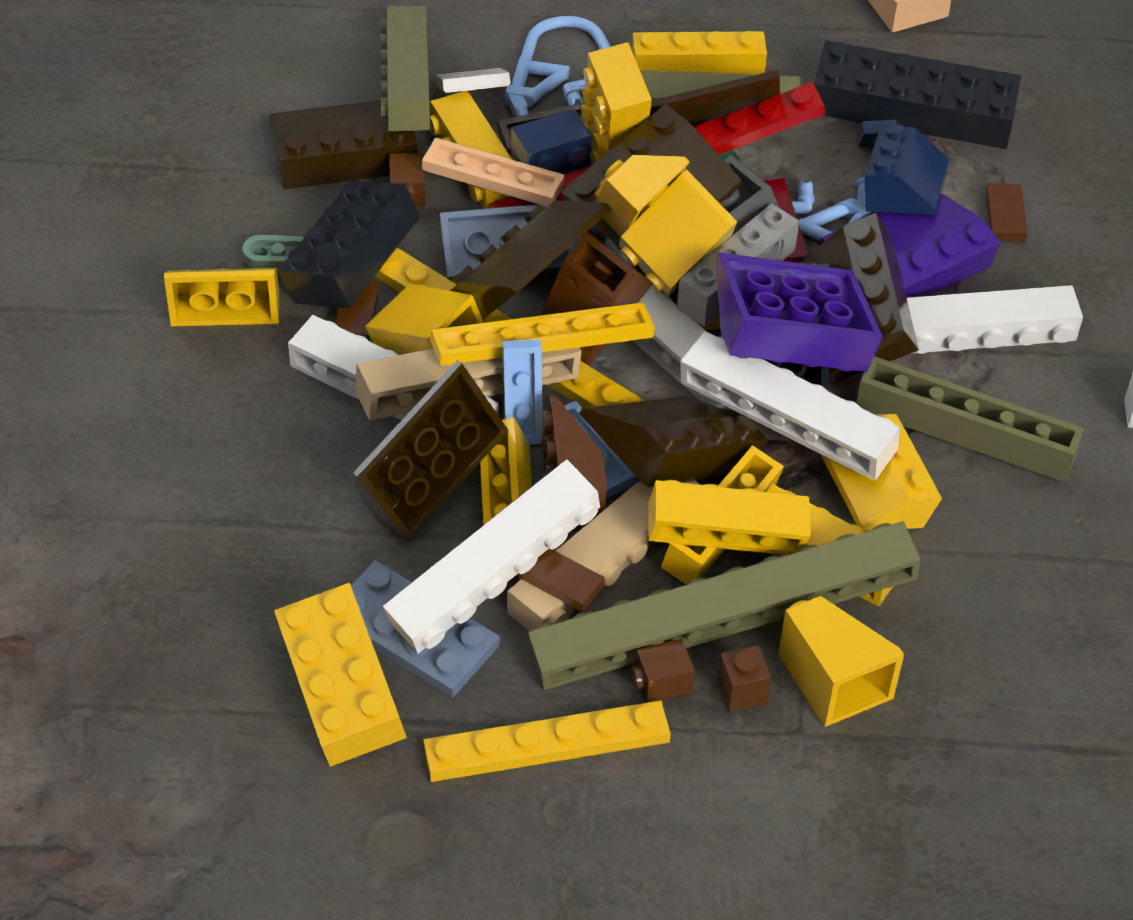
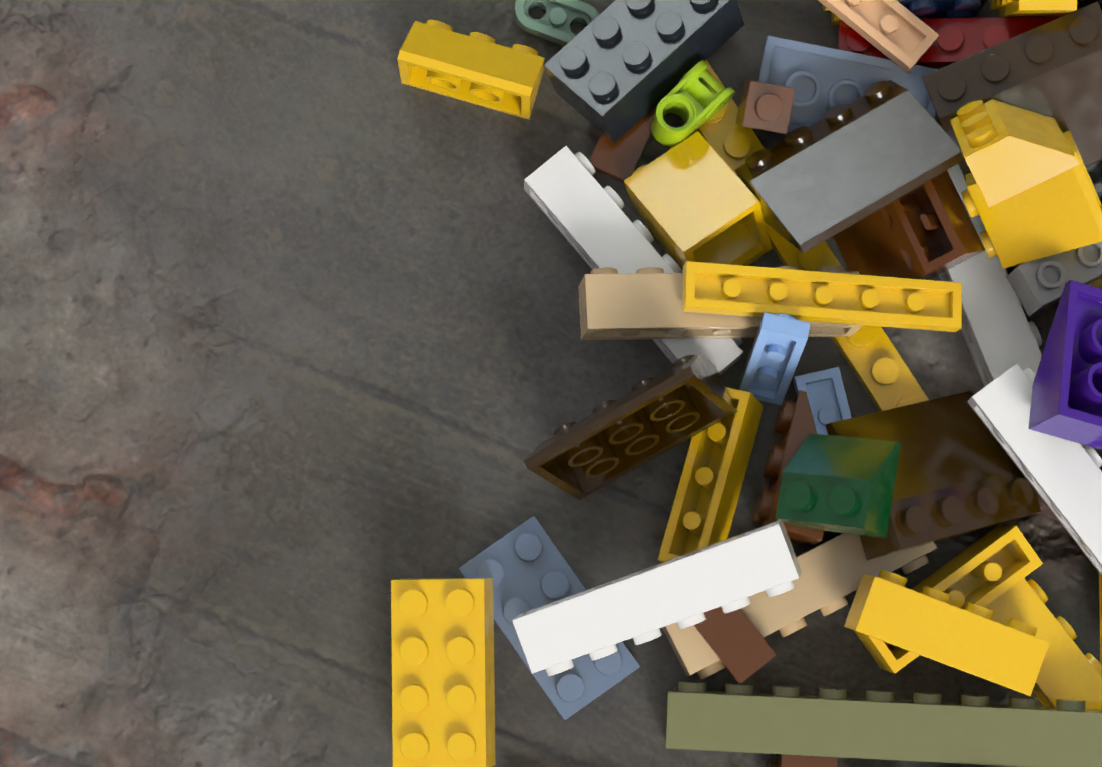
camera: 15 degrees right, 30 degrees up
(397, 268) = (695, 100): none -> lime piece
(453, 249) = (765, 106): none -> reddish brown brick
(605, 433) = (840, 485): none -> dark green slope

